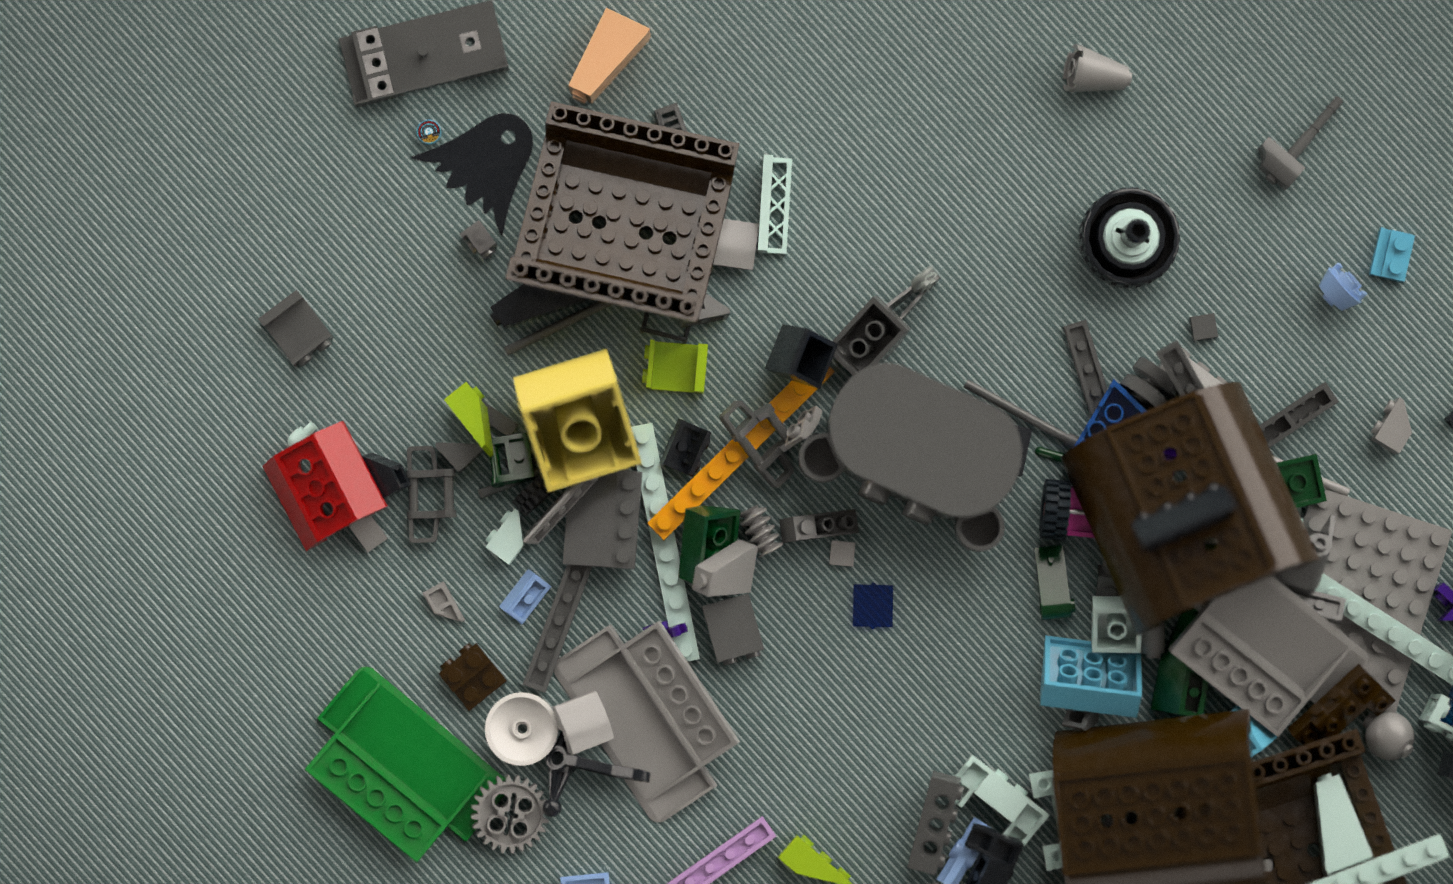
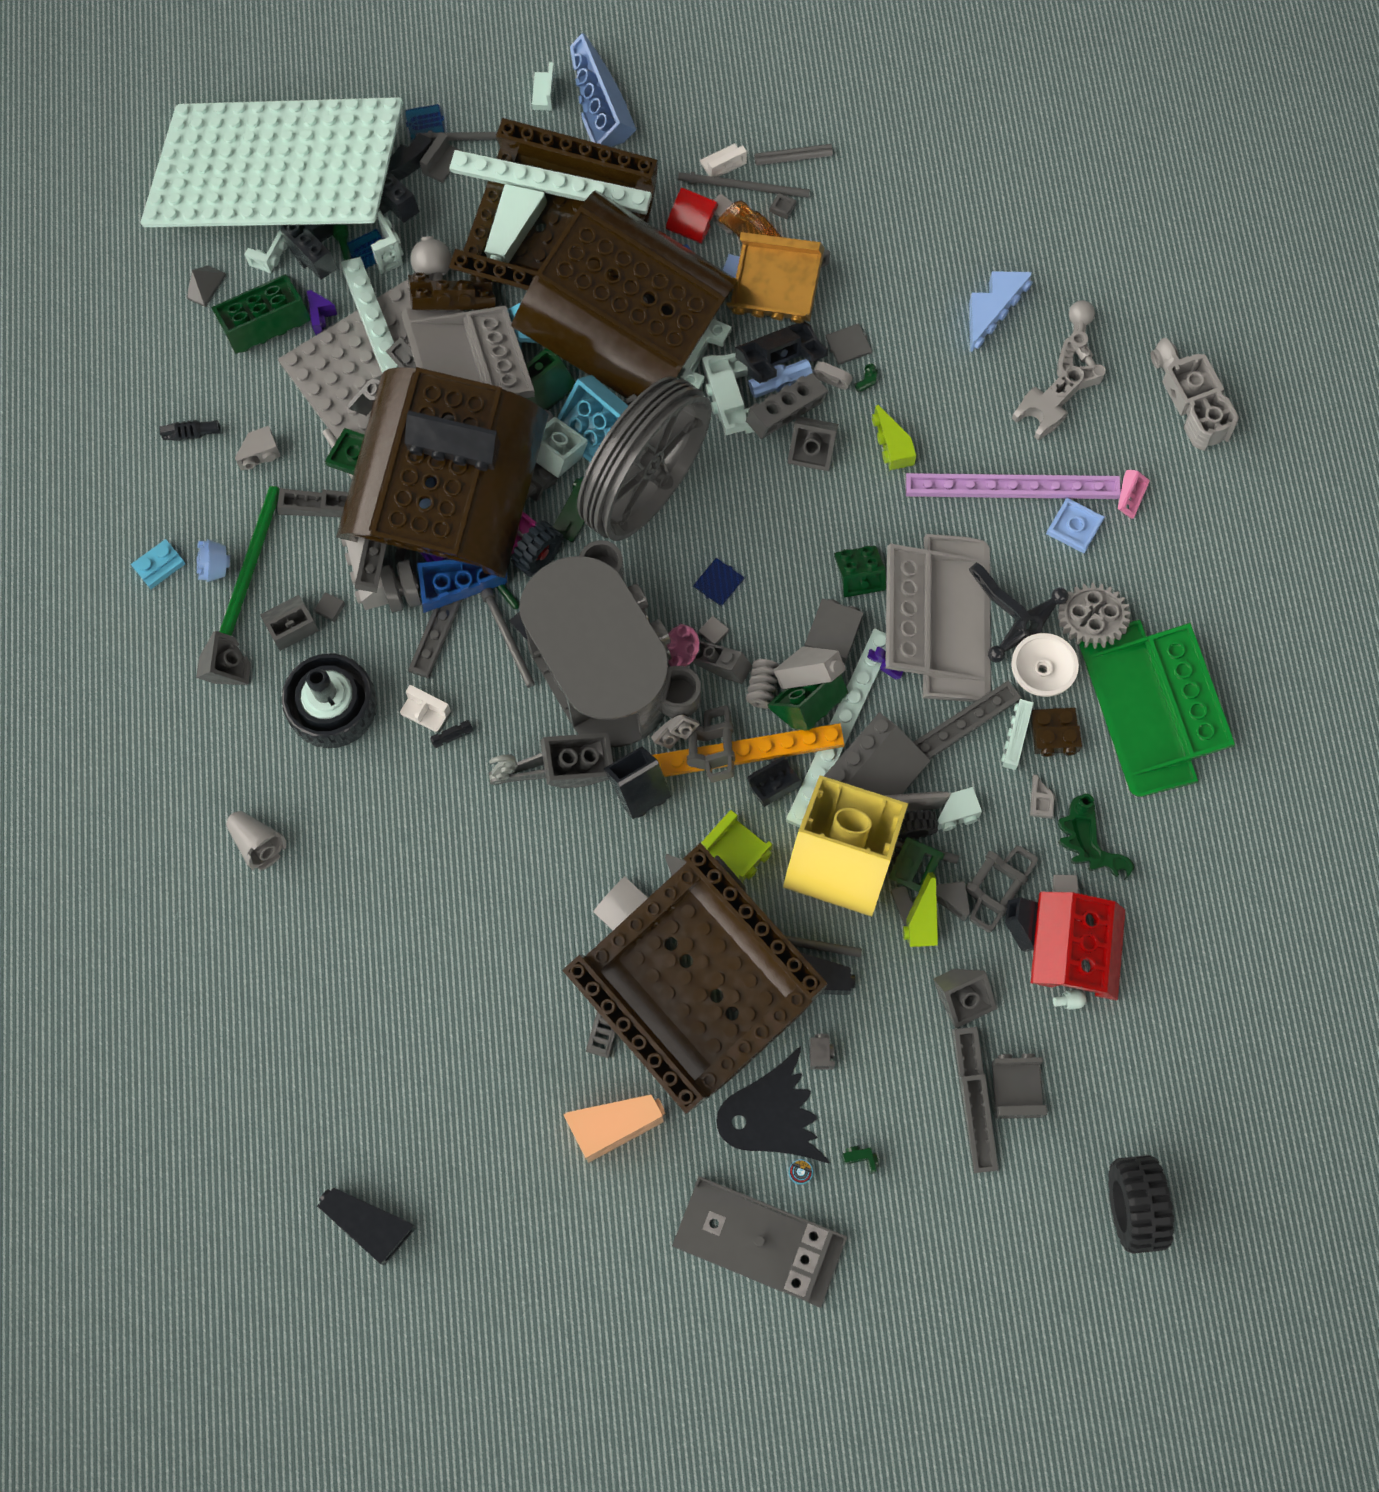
camera: 140 degrees left, 15 degrees down
(134, 292) = (1141, 1204): none -> black tyre
(327, 295) = (975, 1099): none -> dark grey slope
(382, 588) = (1082, 838): none -> dark green animal
(391, 177) = (855, 1154): none -> dark green bracket
(393, 374) = (965, 995): none -> dark grey slope
(504, 648) = (1017, 734): none -> light aqua piece
(525, 596) = (974, 762): light blue slope -> none
(583, 722) = (994, 637): light grey slope -> none
(752, 708) = (861, 571): none -> dark green bracket
(766, 198) = (575, 919): light aqua fence -> none
(859, 514) = (683, 645): none -> bright pink dish
(885, 806) = (812, 443): none -> dark grey slope
(1001, 289) = (451, 734): none -> black axle
(1009, 645) = (644, 458): none -> dark grey wheel
(1041, 293) = (425, 709): none -> white panel
(1227, 284) = (289, 622): none -> dark grey slope
(1253, 206) = (223, 661): none -> dark grey slope
(1282, 165) = (178, 676): dark grey piece -> none
(1309, 315) = (250, 561): none -> green axle

